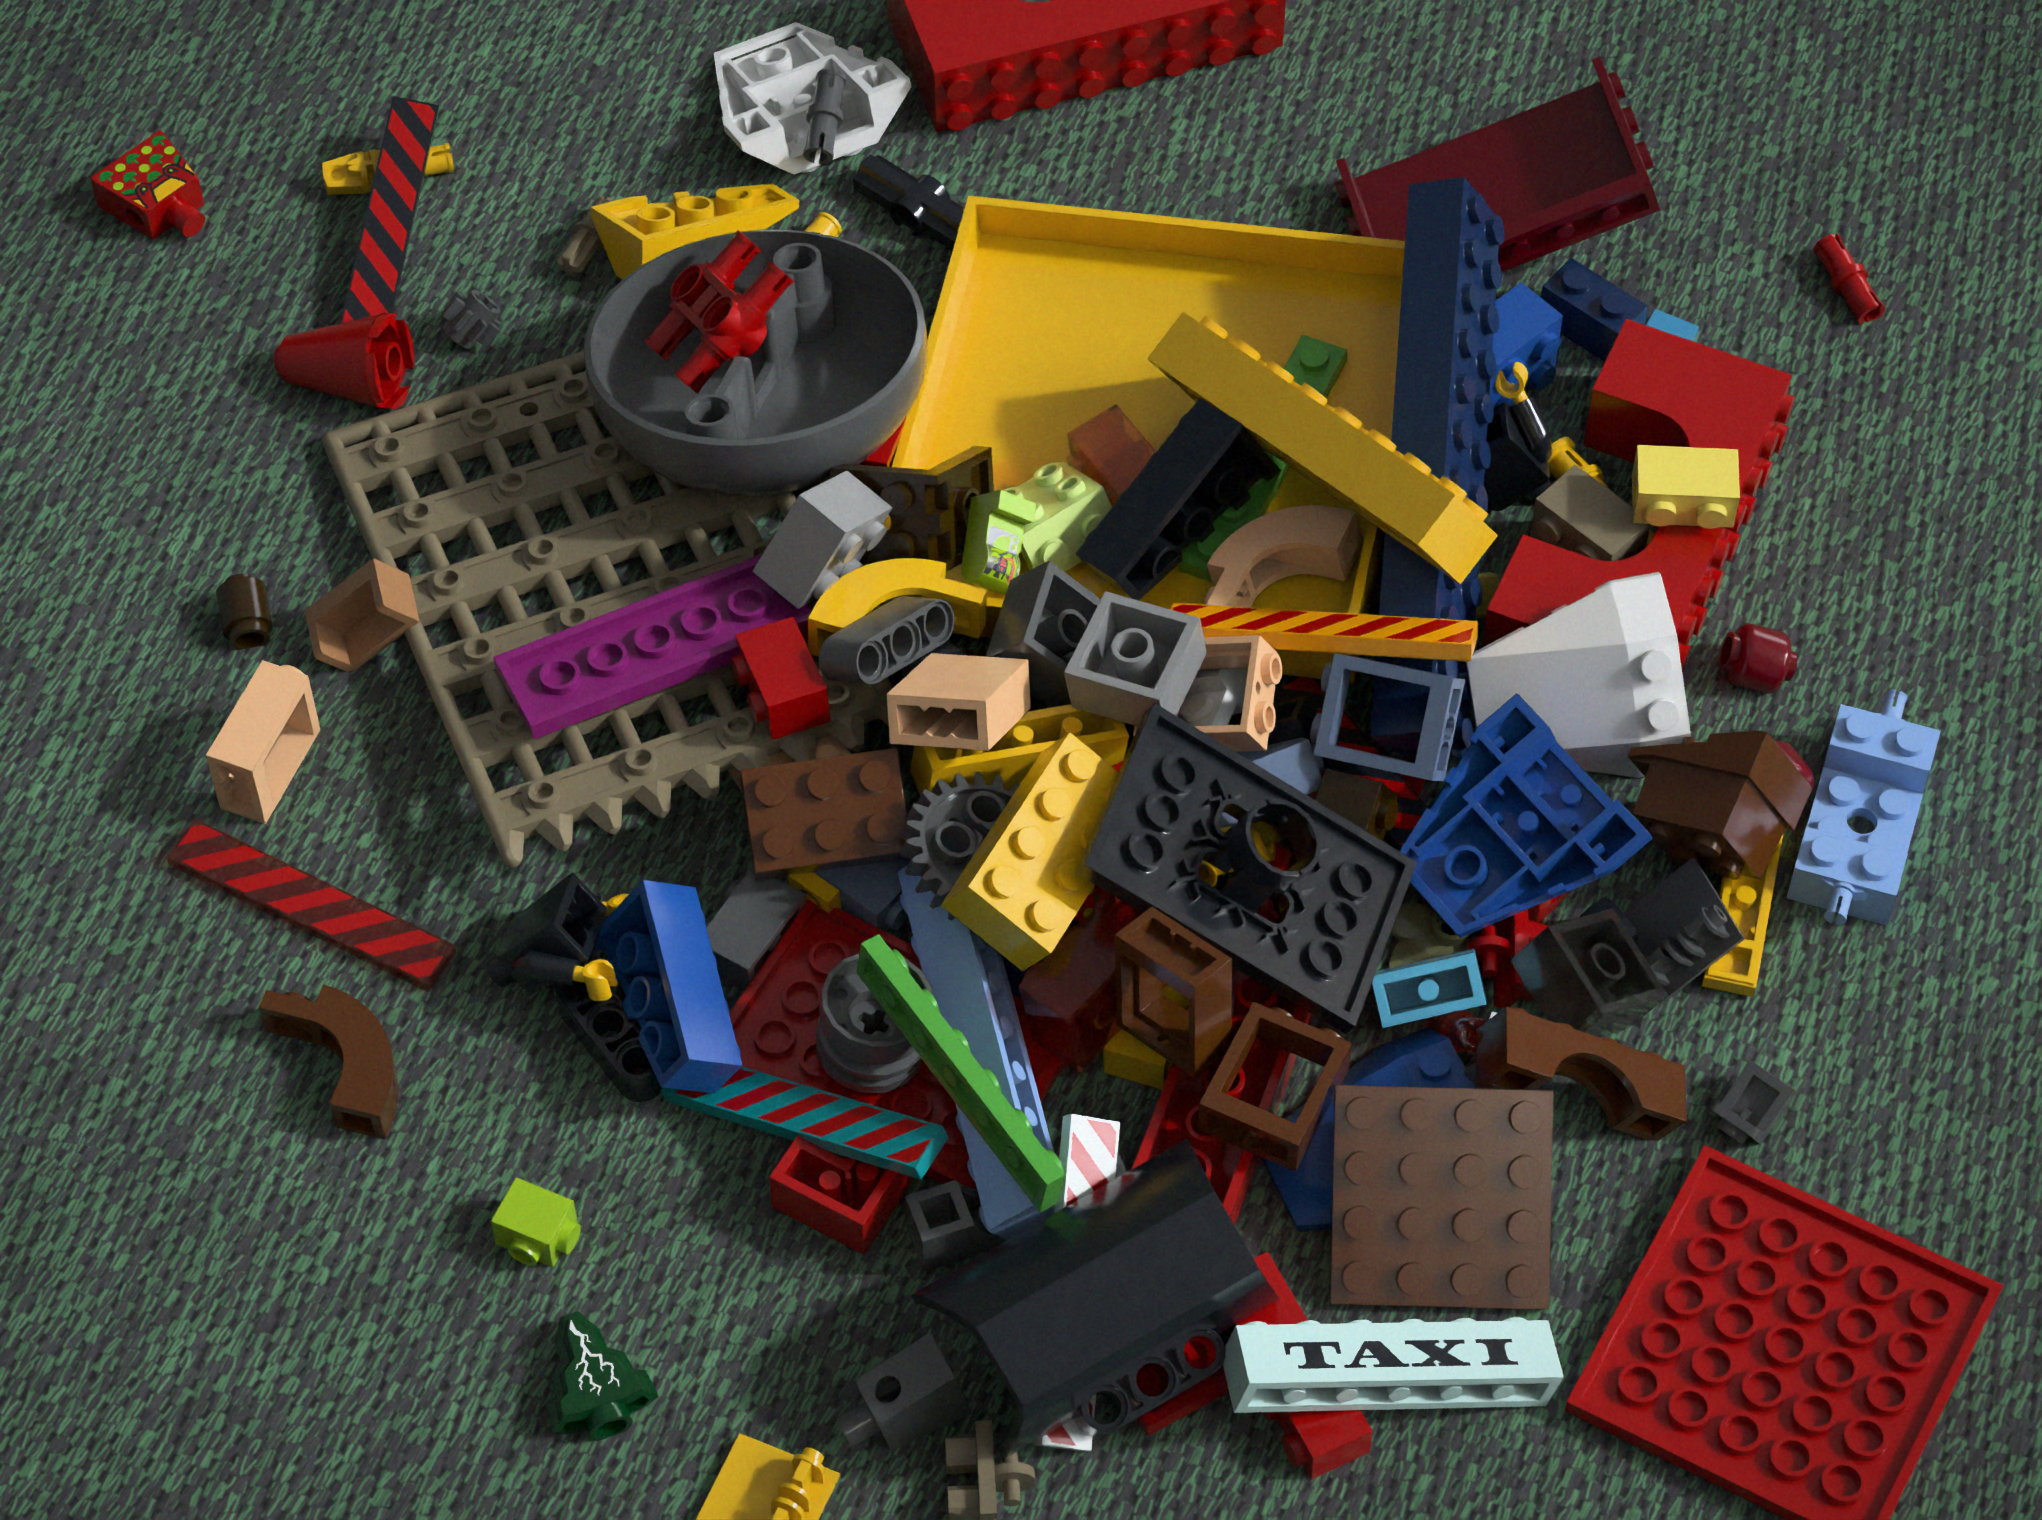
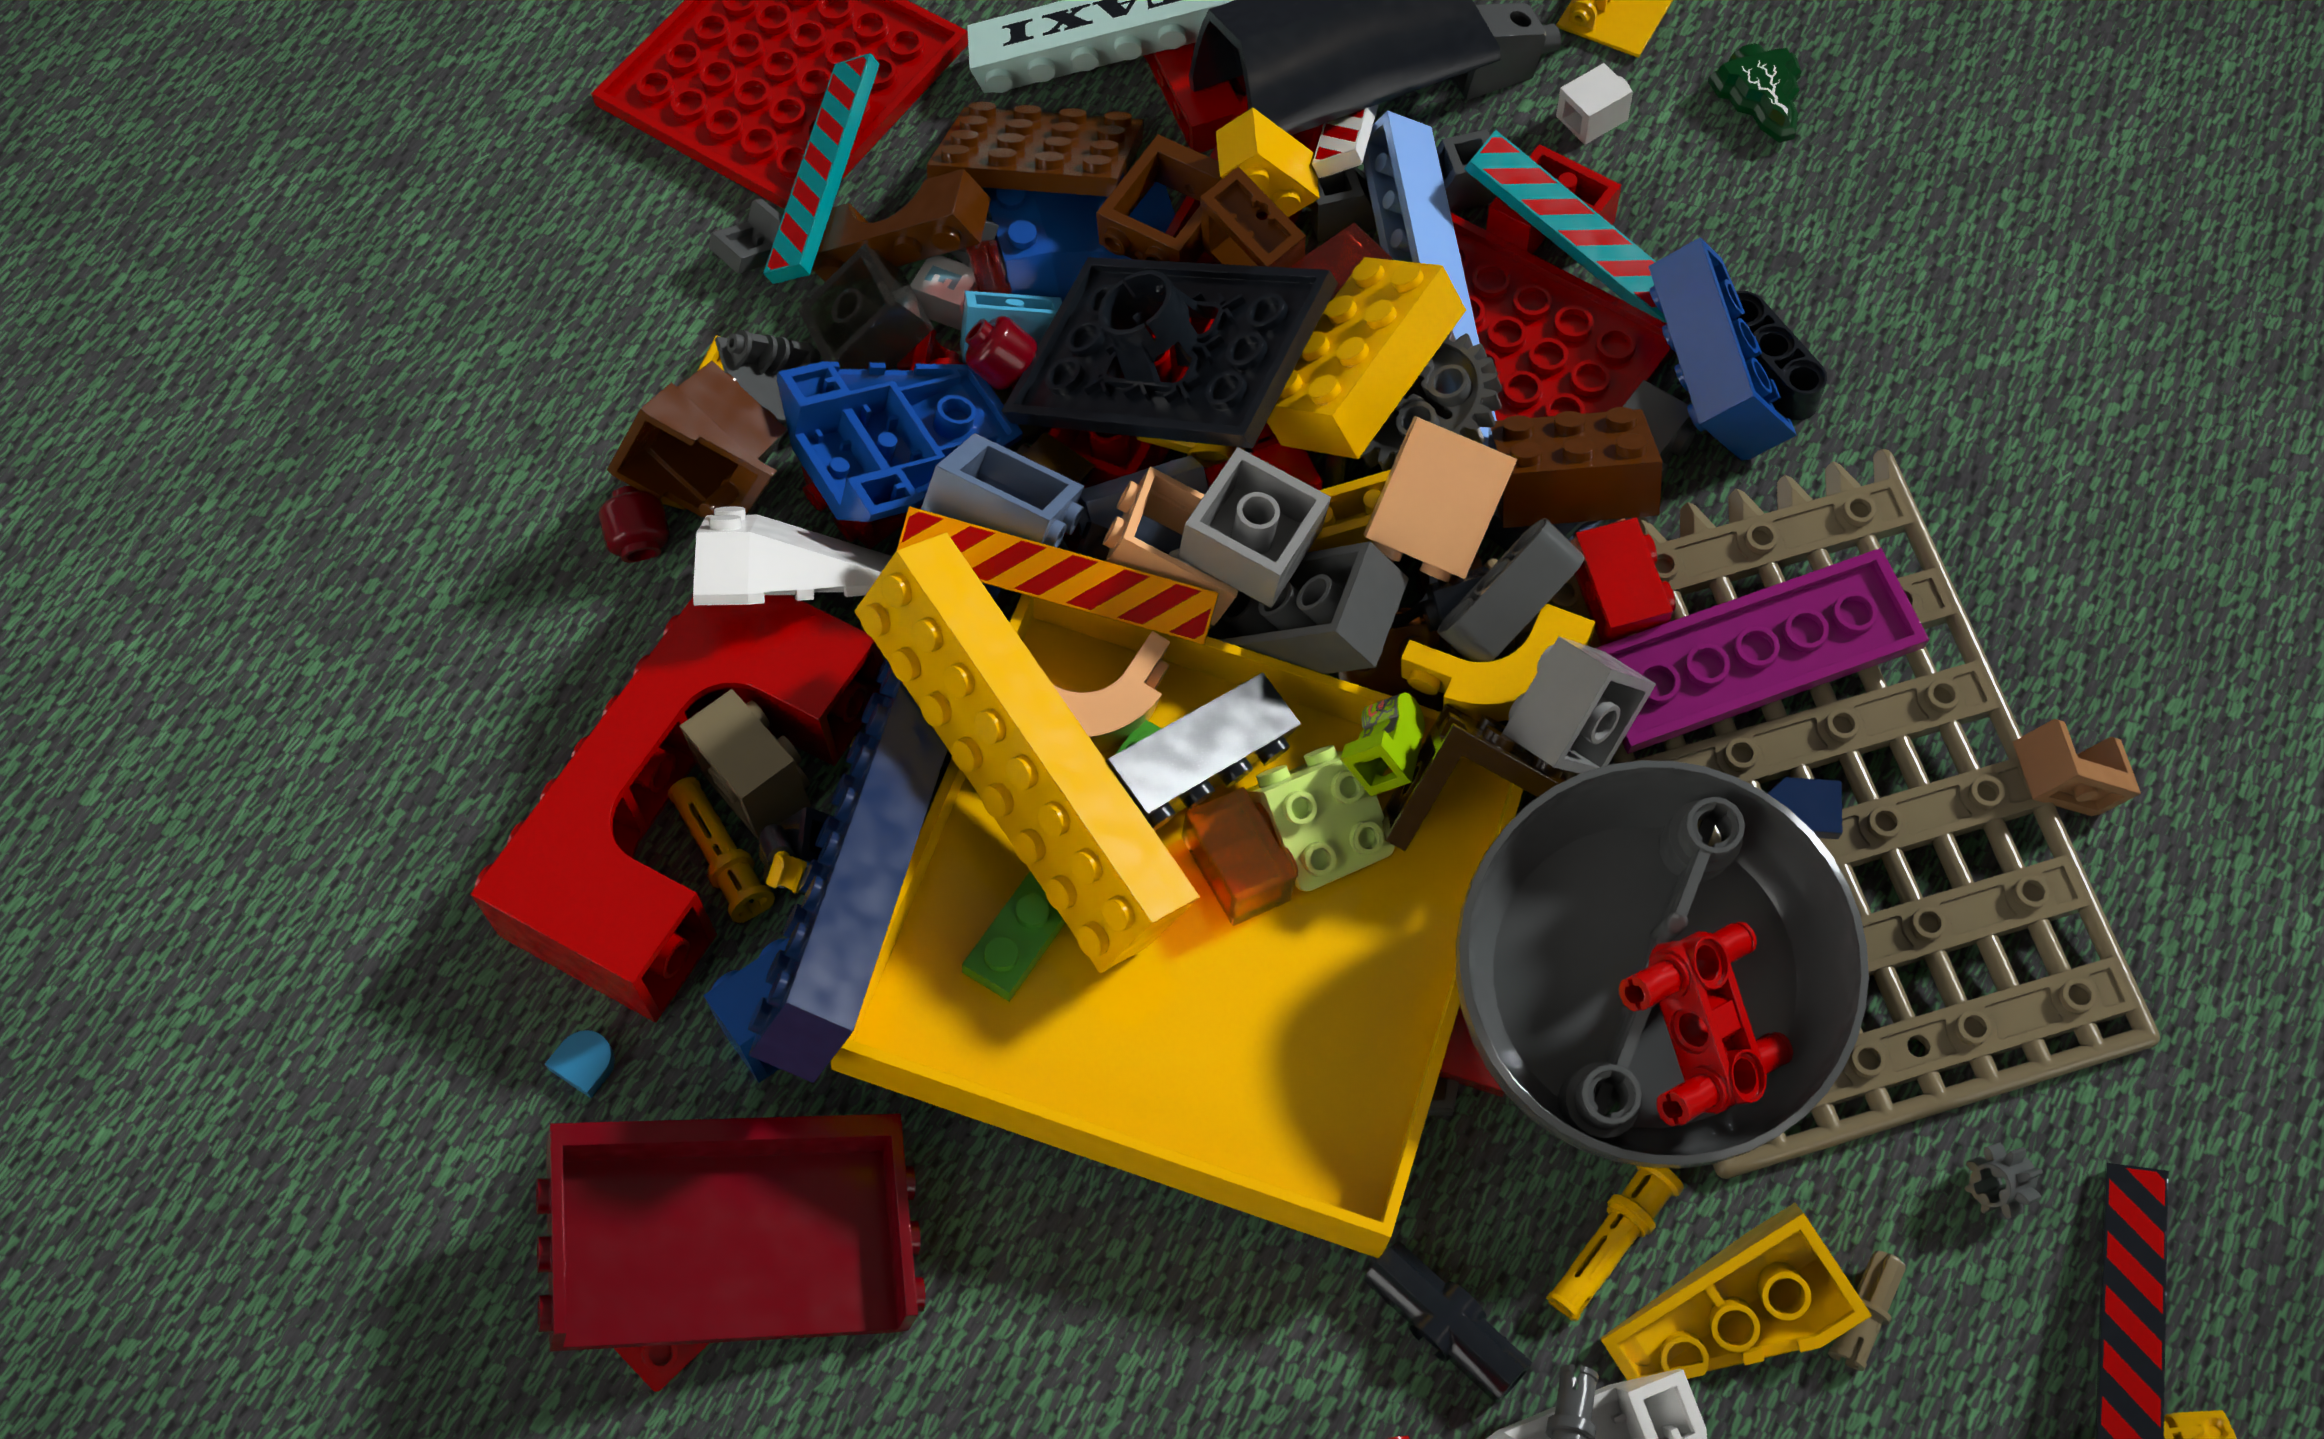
camera: 170 degrees left, 5 degrees up
(244, 611) = (2207, 815): dark brown brick -> none
(263, 741) = (2157, 631): light nougat window -> none
(312, 905) = (2078, 507): clear red tile -> none
(351, 360) = (2146, 1119): red cone -> none
(369, 1081) = (2012, 364): reddish brown arch -> none
(535, 1224) = (1823, 202): lime brick -> none
(554, 939) = (1832, 412): black torso -> none
(625, 536) = (1813, 802): none -> dark blue tile
(793, 1342) = (1594, 103): none -> white brick
(858, 1038) = (1527, 295): dark grey wheel -> none
(968, 1084) = (1460, 191): bright green plate -> none
(1169, 1103) = (1270, 159): none -> yellow brick
(1430, 927) = (999, 351): none -> dark red head
(1591, 307) = (659, 1073): dark blue brick -> none
(1685, 486) = (633, 732): light yellow brick -> none
(1688, 1171) = (821, 169): none -> teal tile
(1757, 658) = (610, 647): dark red head -> none
(1848, 278) = (351, 1117): red pin -> none
(1874, 772) = (531, 525): light blue brick -> none

